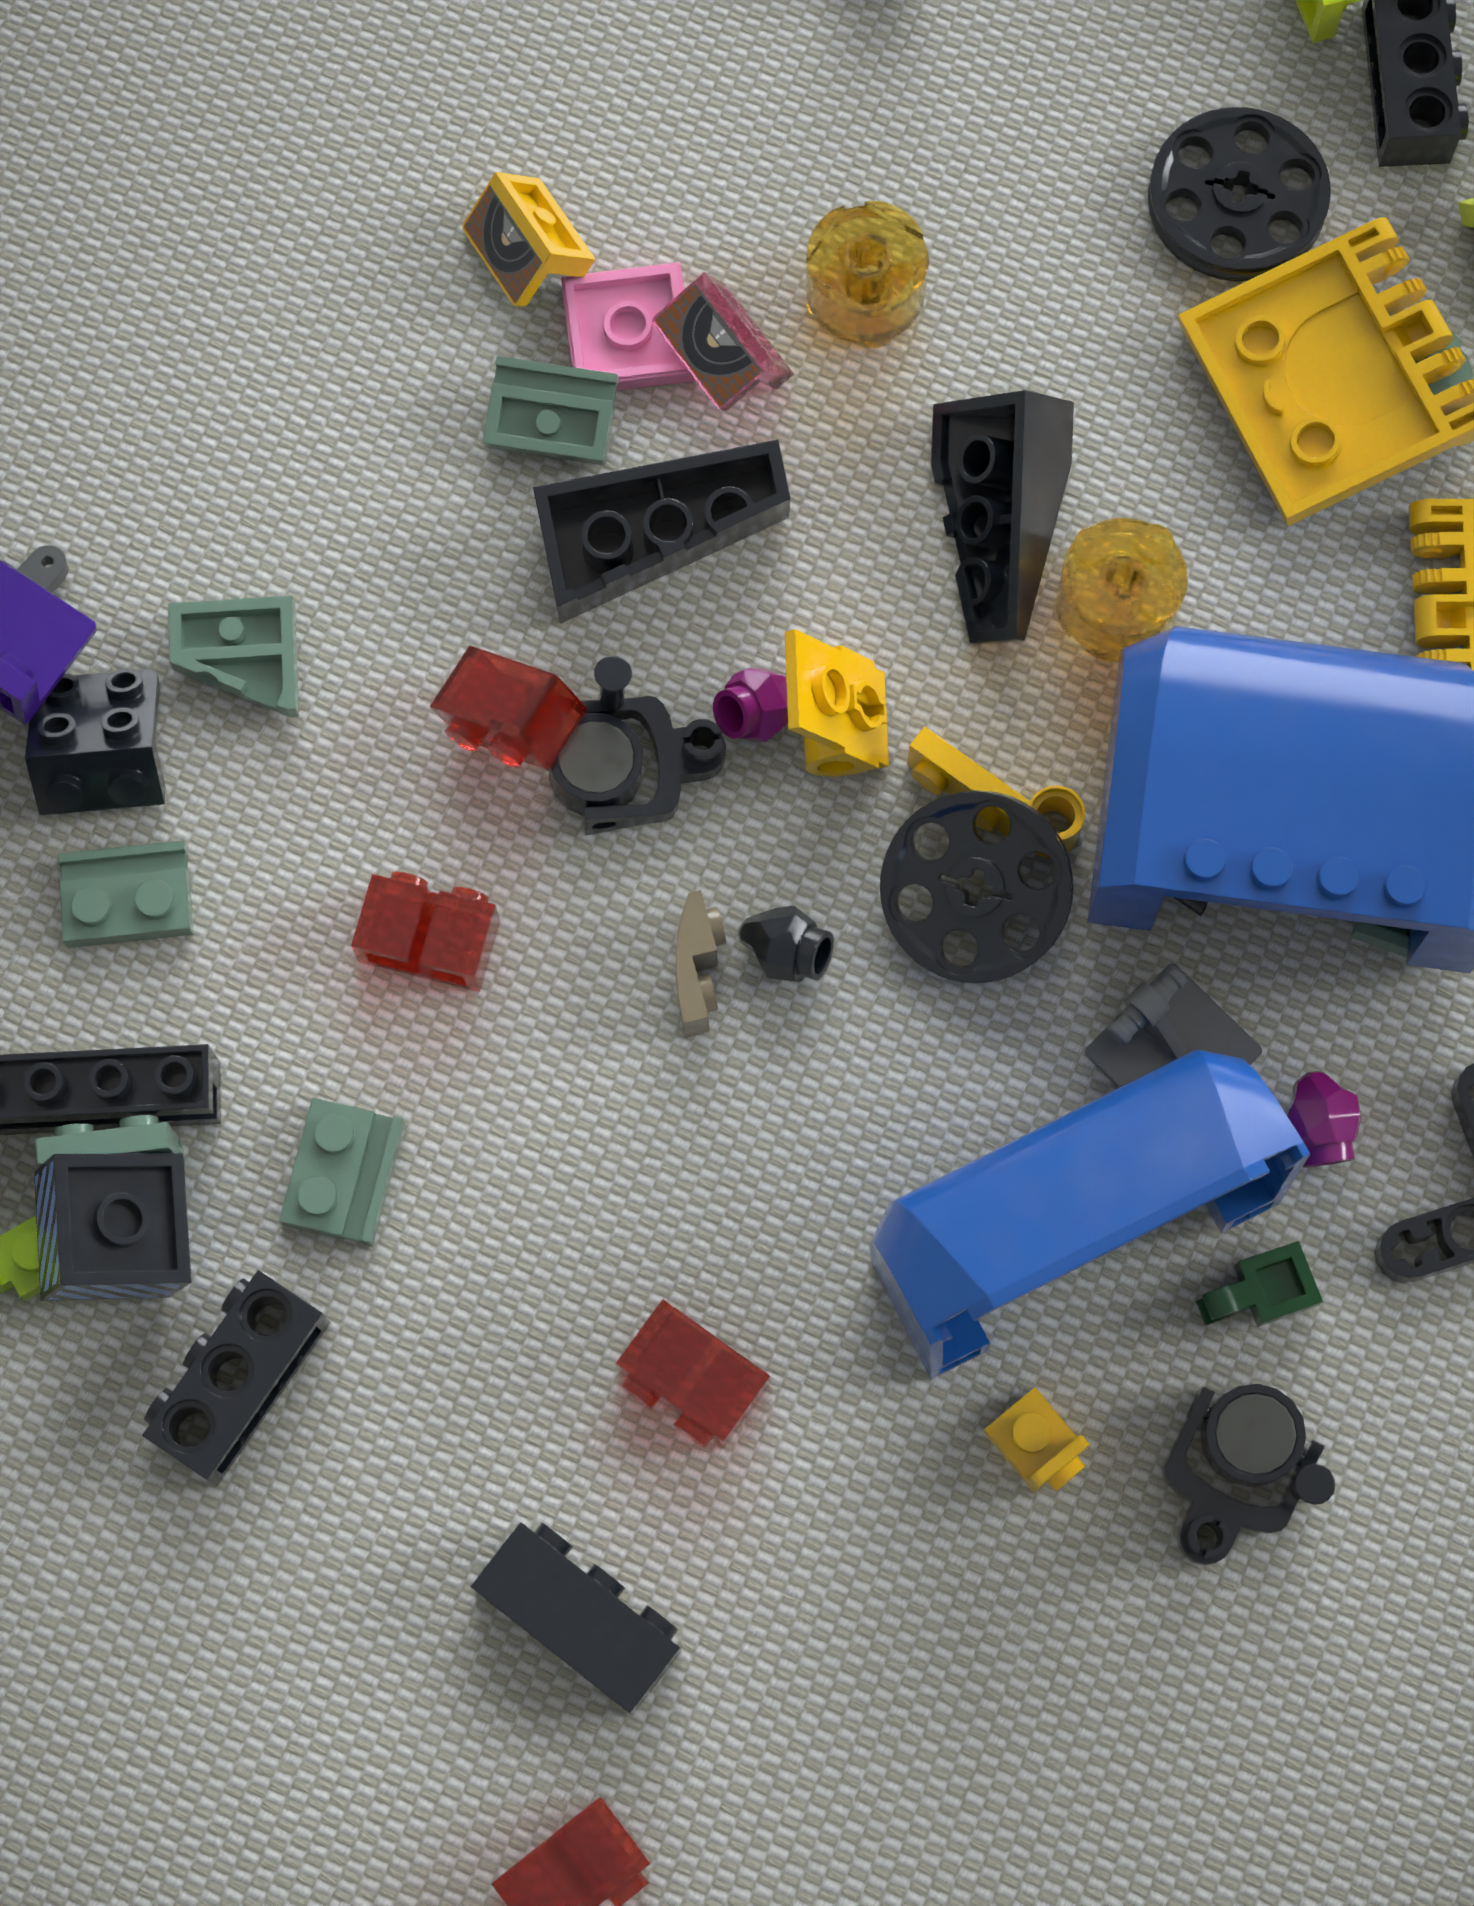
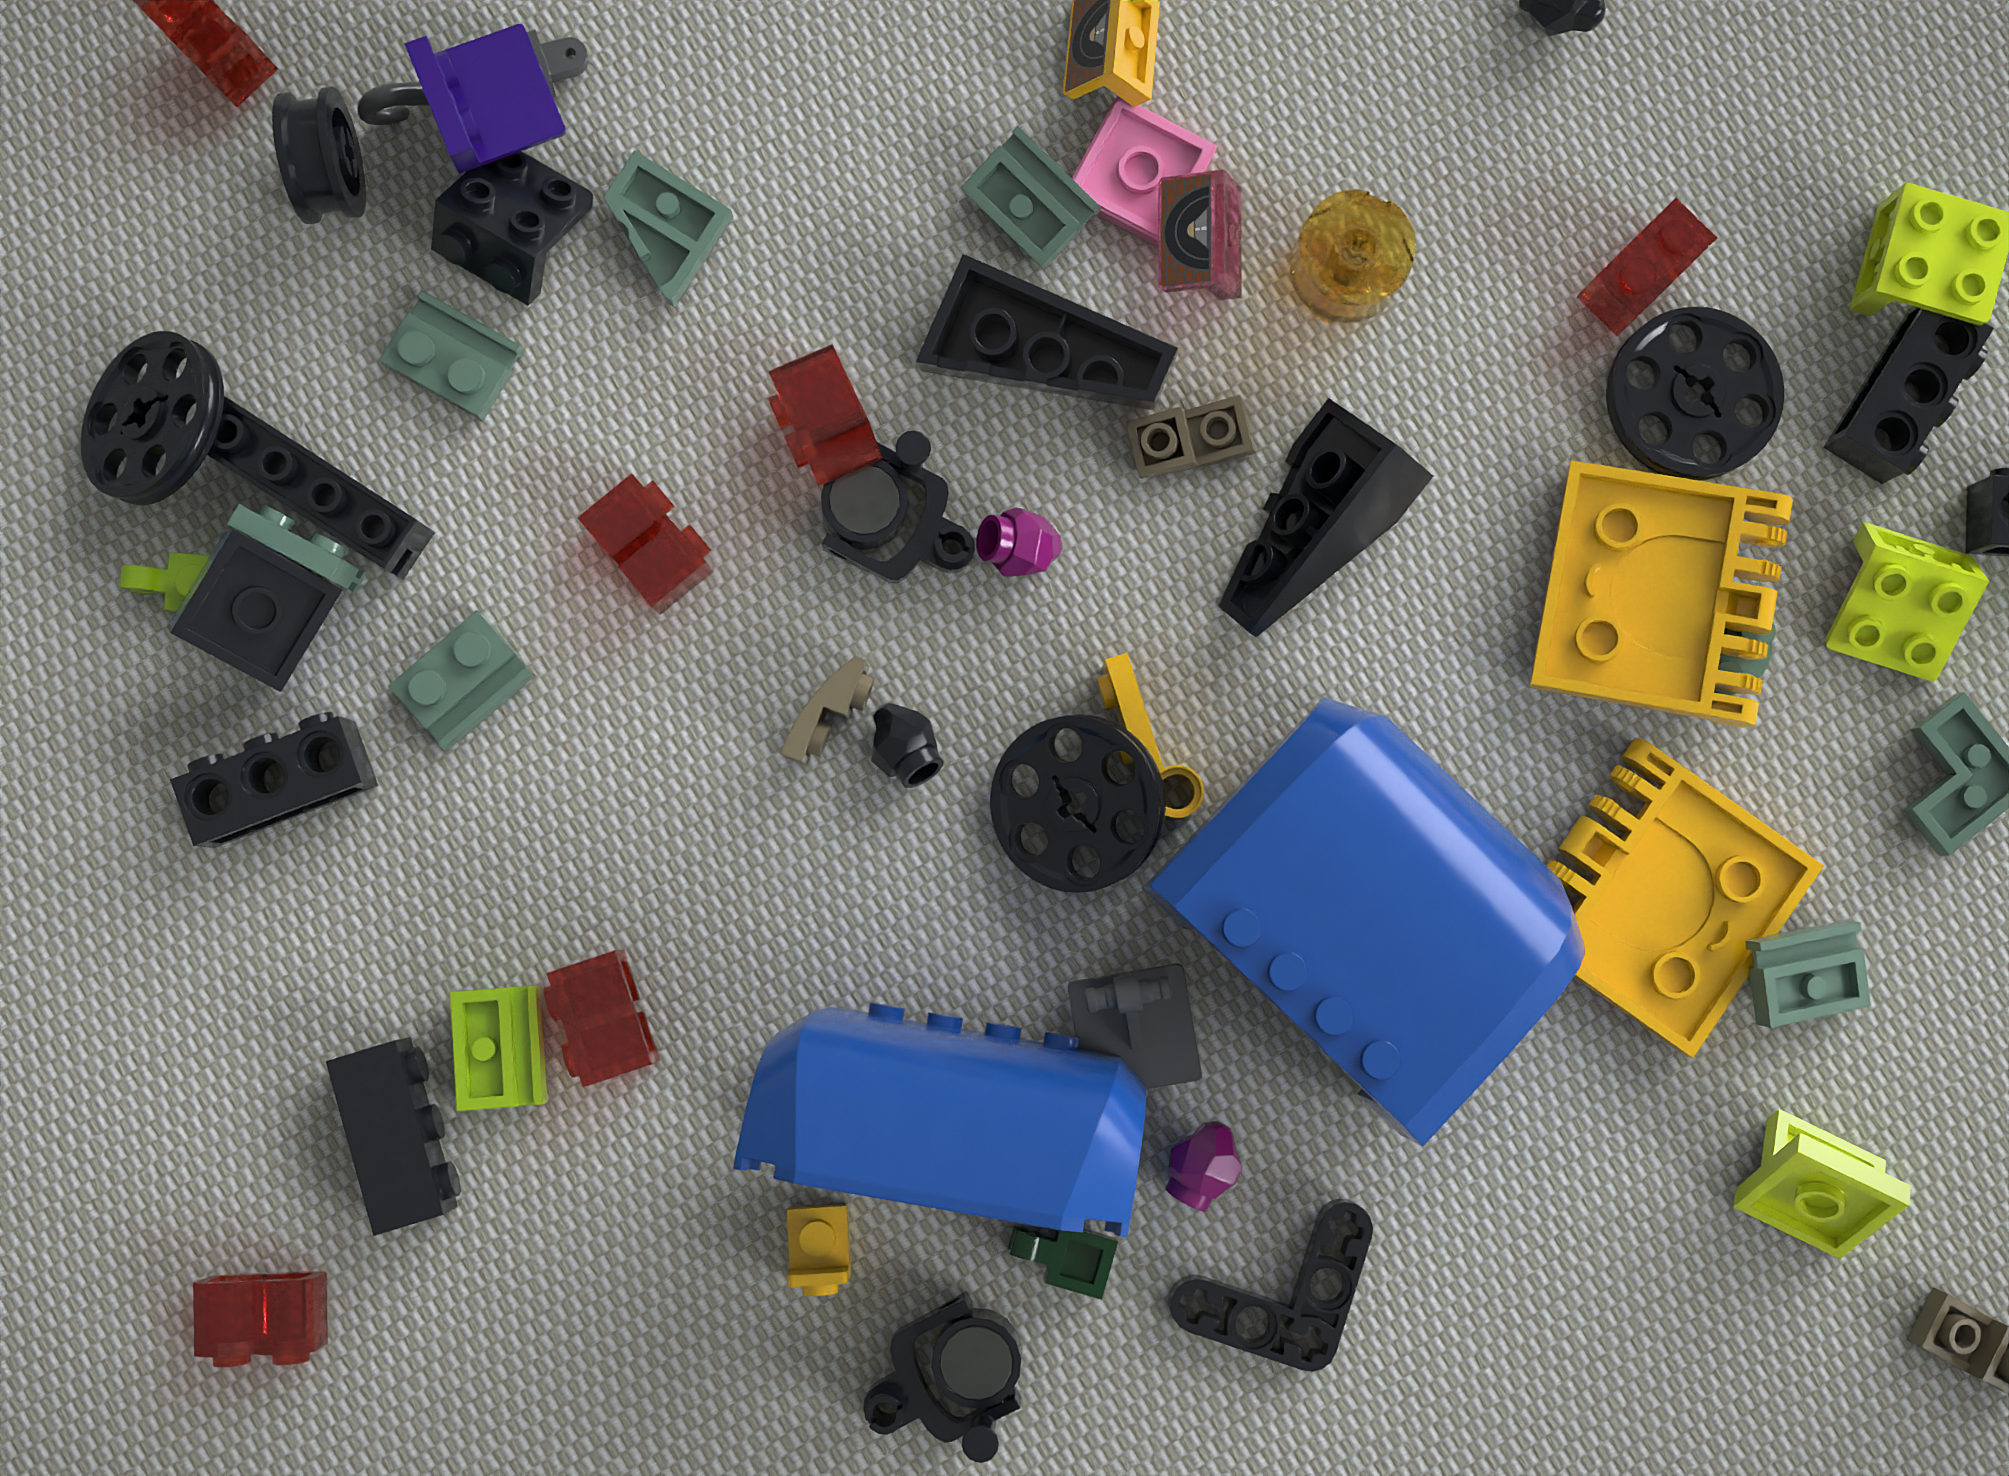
camera: 30 degrees right, 10 degrees up
(616, 1471) = (498, 1047): none -> lime plate
(836, 705) = (1072, 587): yellow piece -> none
(840, 517) = (1190, 437): none -> dark tan slope
(1120, 117) = (1646, 266): none -> clear red piece
(1128, 556) = (1393, 639): clear yellow brick -> none

